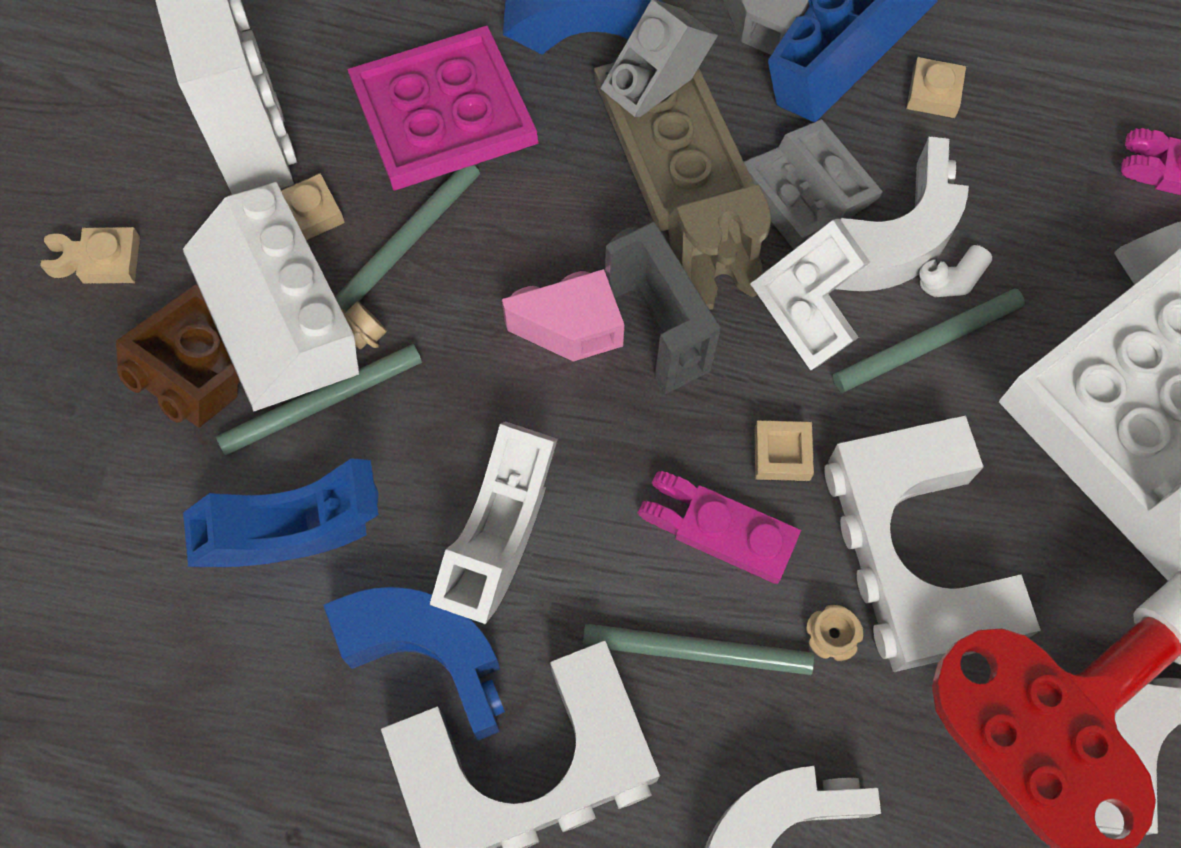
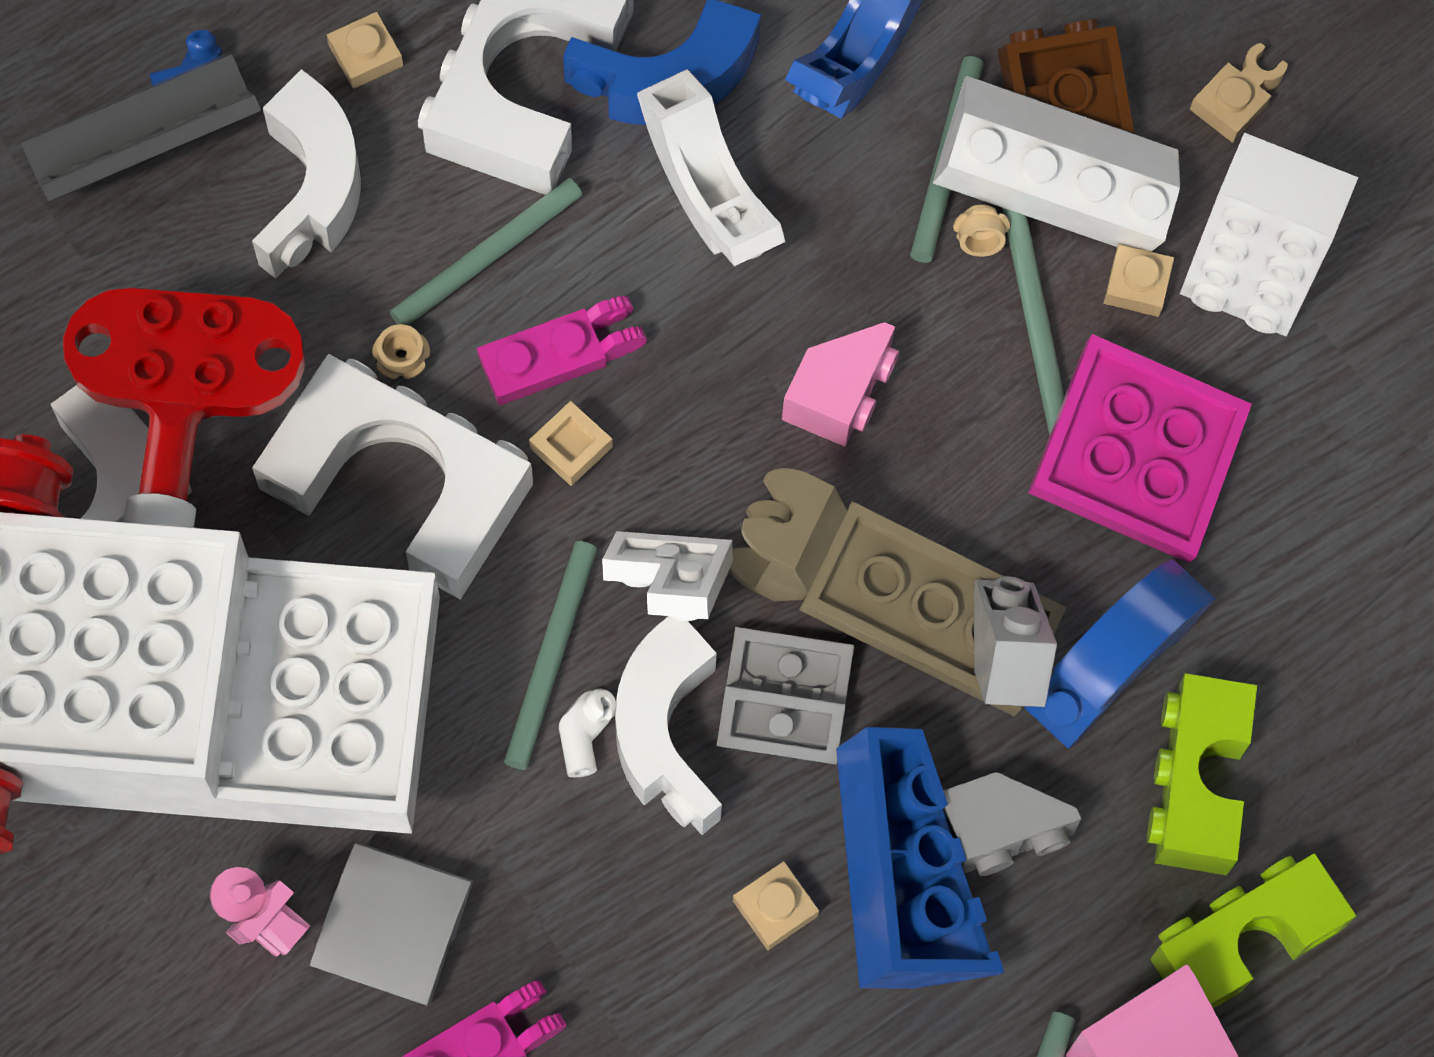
camera: 130 degrees right, 0 degrees up
(690, 333) = (755, 444): dark grey panel -> none

